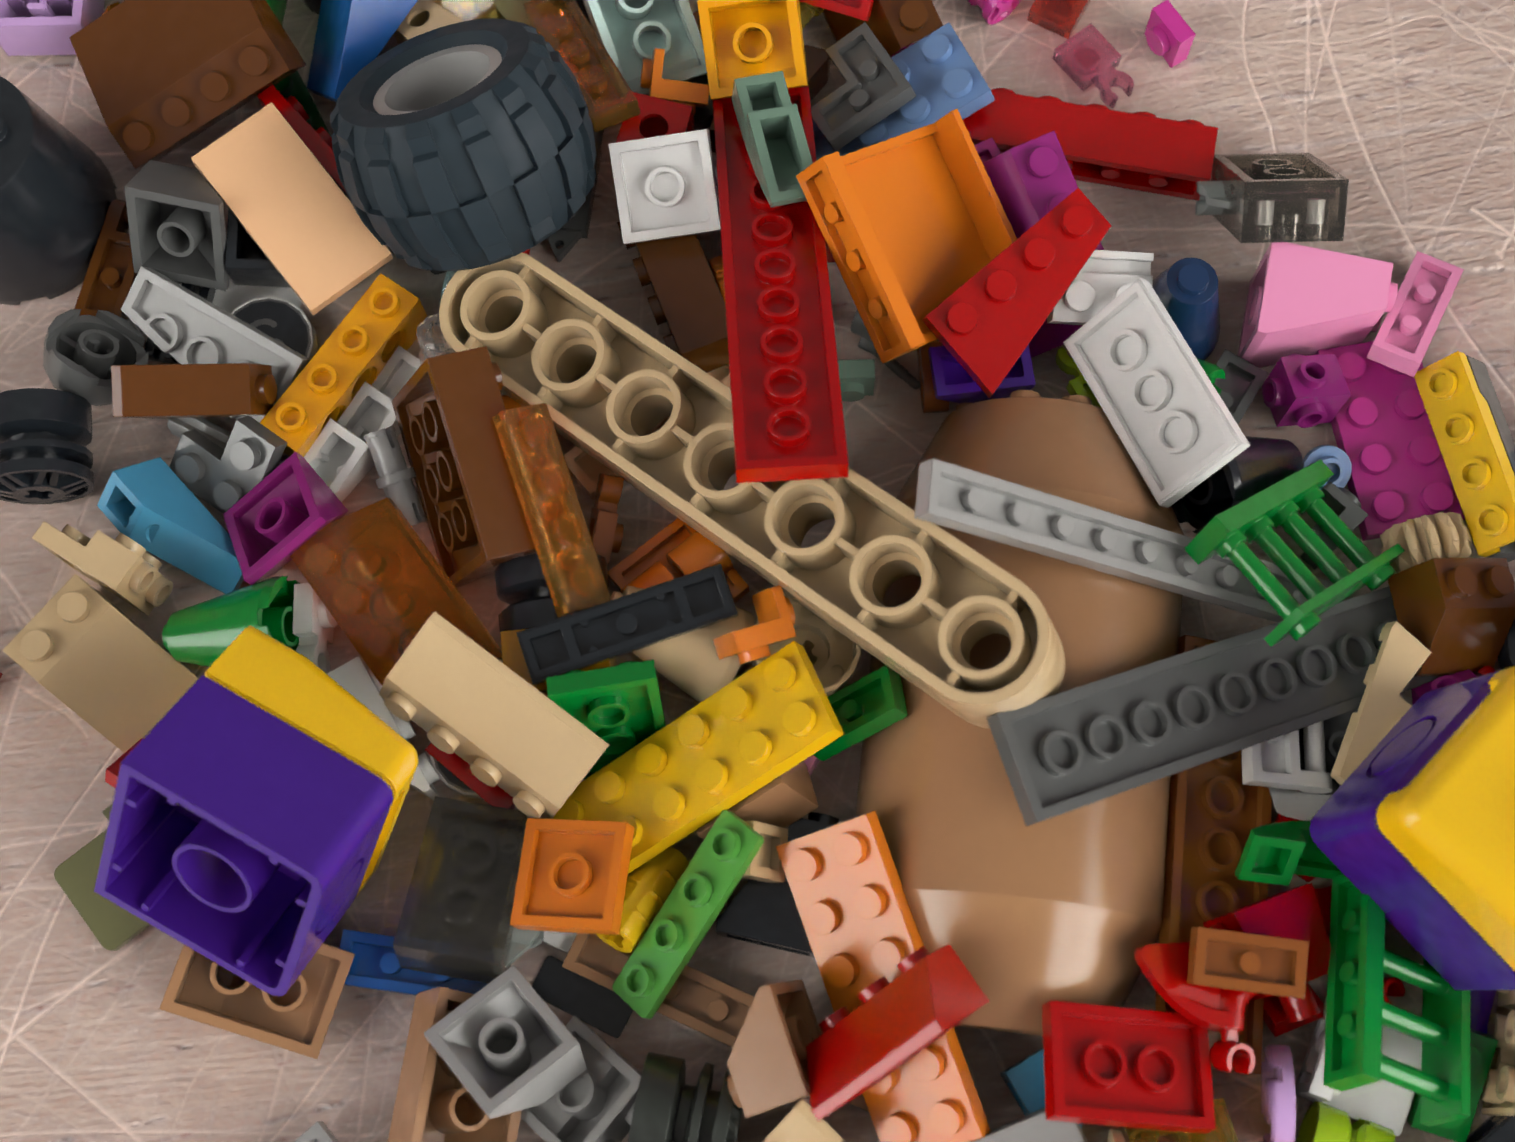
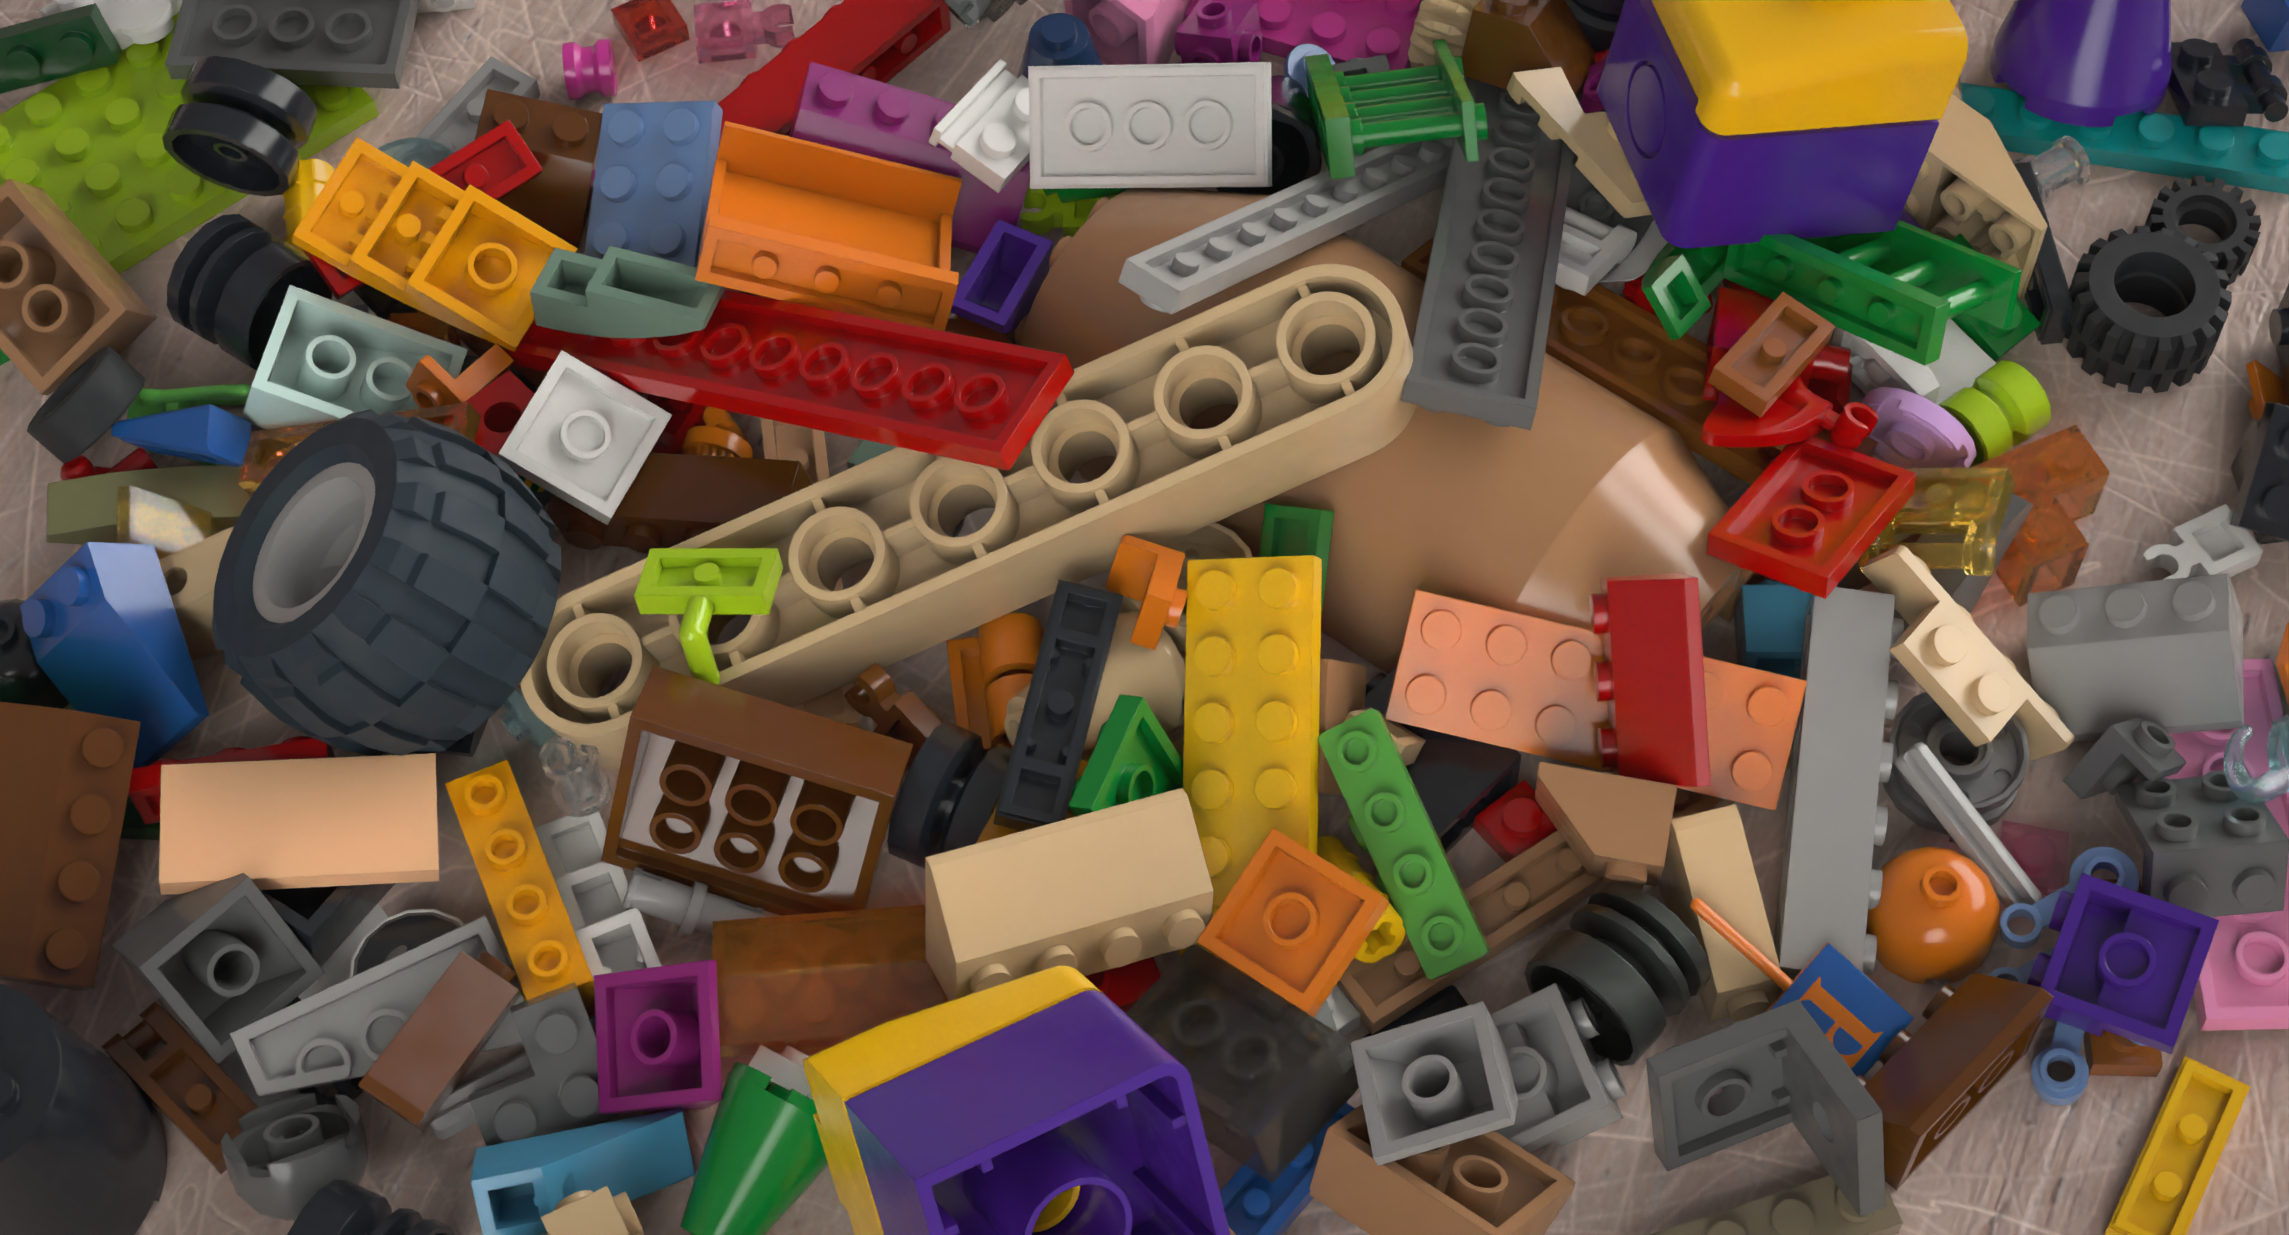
camera: 60 degrees left, 15 degrees down
(551, 508) = (877, 711): clear orange plate -> none
(567, 341) = (704, 585): none -> lime plate
(782, 967) = (1514, 822): none -> red plate
(871, 88) = (614, 198): dark grey plate -> none
(1009, 299) = (956, 184): red wing -> none

